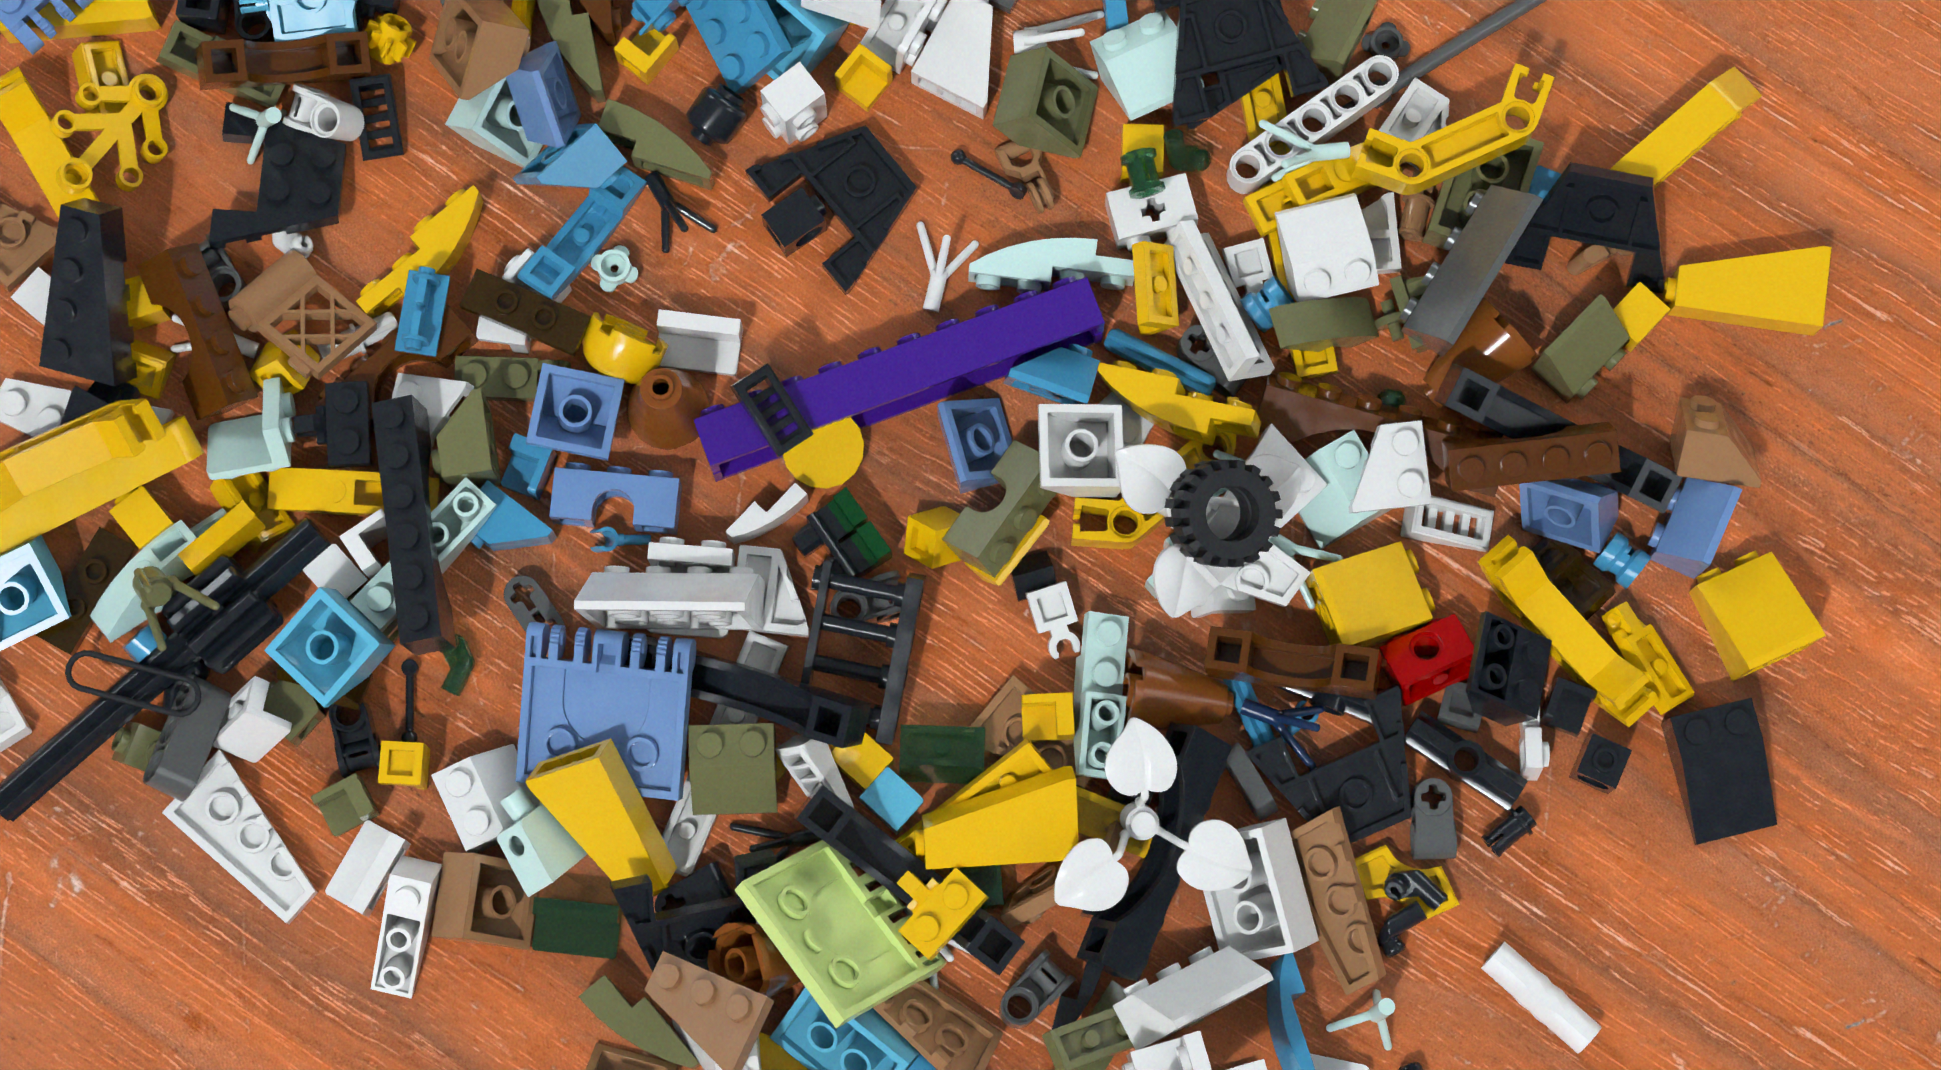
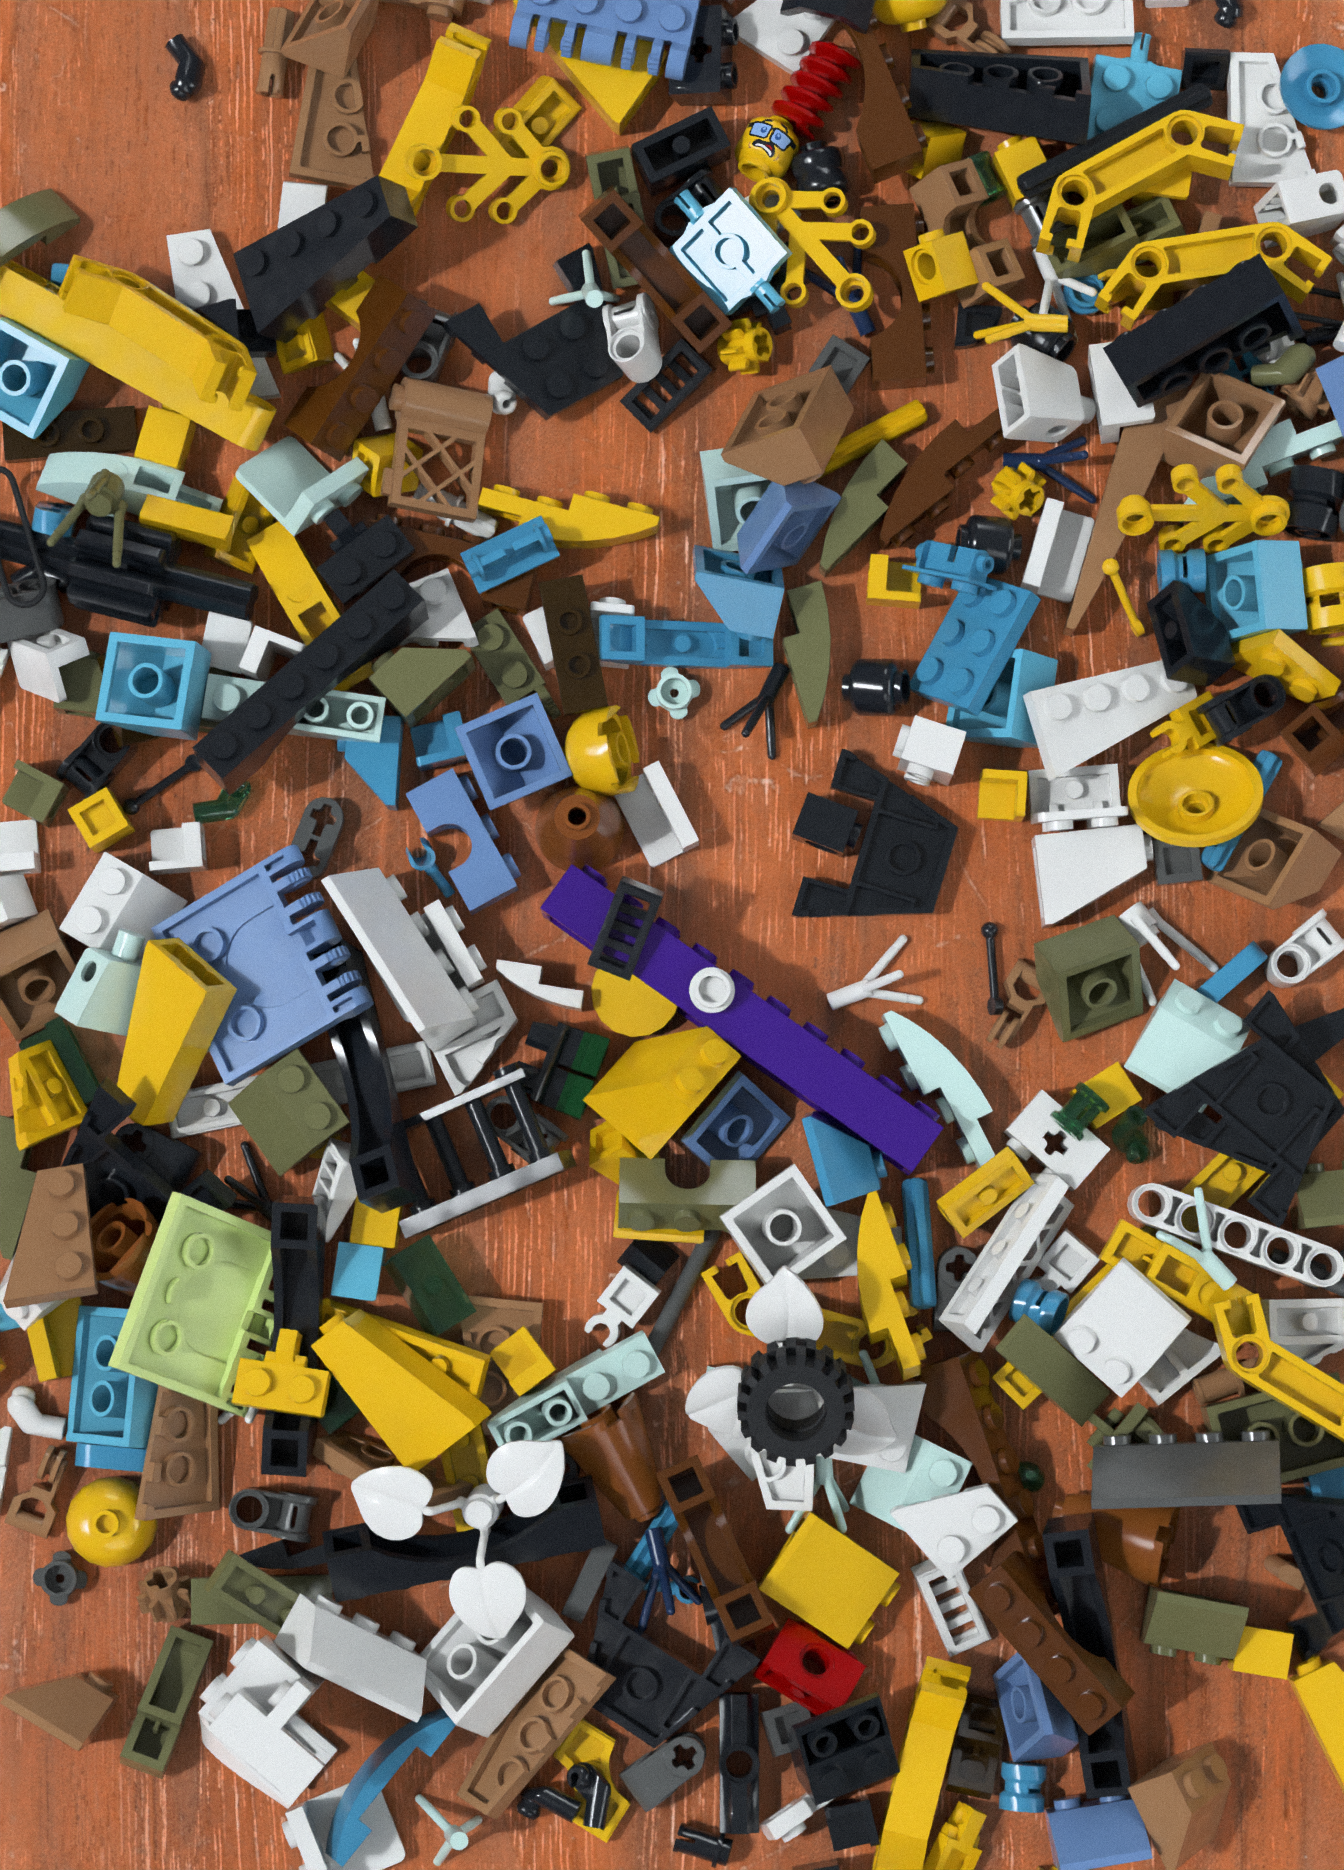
camera: 60 degrees right, 5 degrees up
(469, 722) = (178, 849): none -> white panel
(587, 952) = (42, 1095): none -> yellow wing
(864, 376) = (712, 990): none -> white plate
(909, 468) = (661, 1085): none -> yellow slope
(1073, 563) = (682, 1290): none -> dark grey bar

